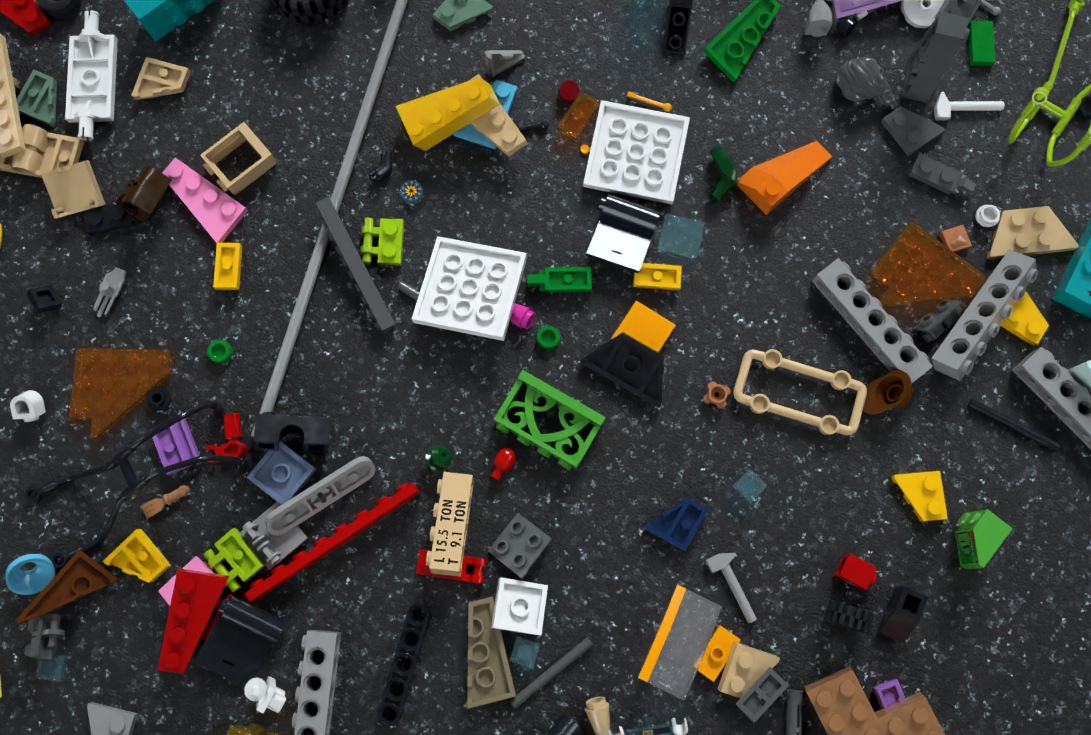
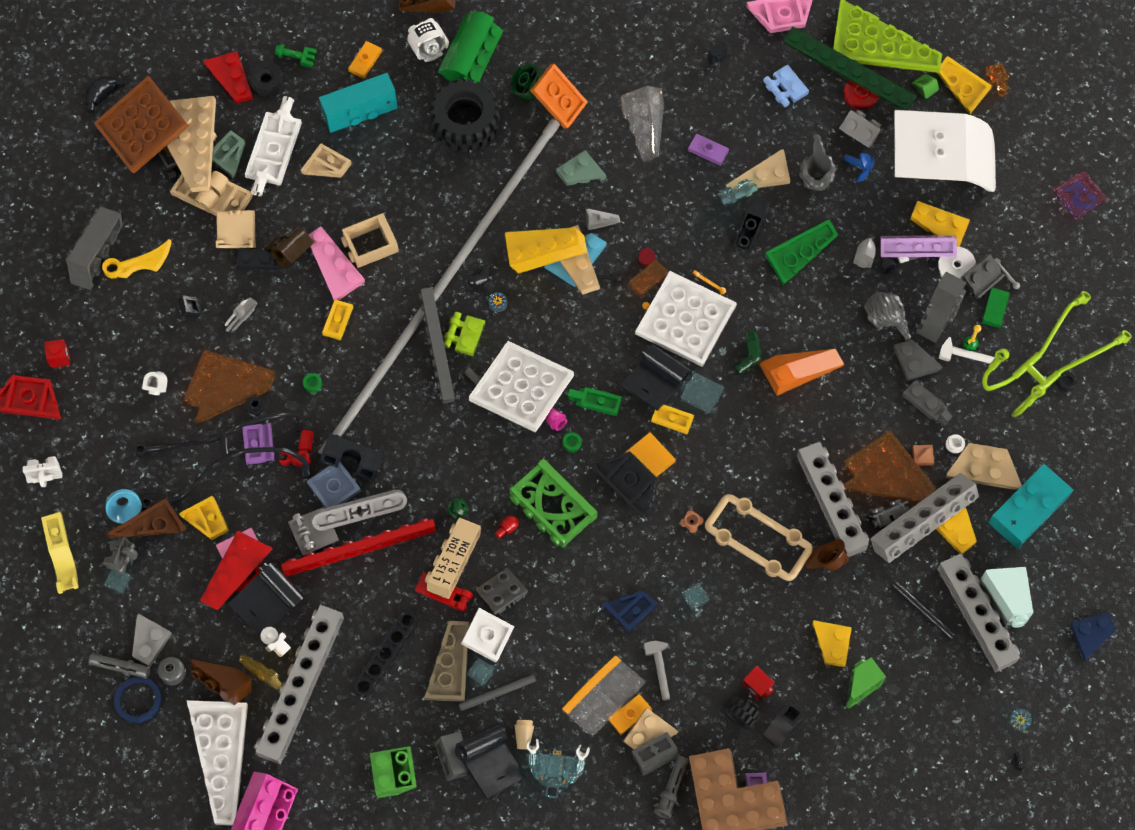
camera: 15 degrees right, 10 degrees down
(156, 505) = (230, 484): medium nougat piece -> none
(238, 554) = (283, 536): lime plate -> none
(969, 88) = (972, 340): none -> green hinge

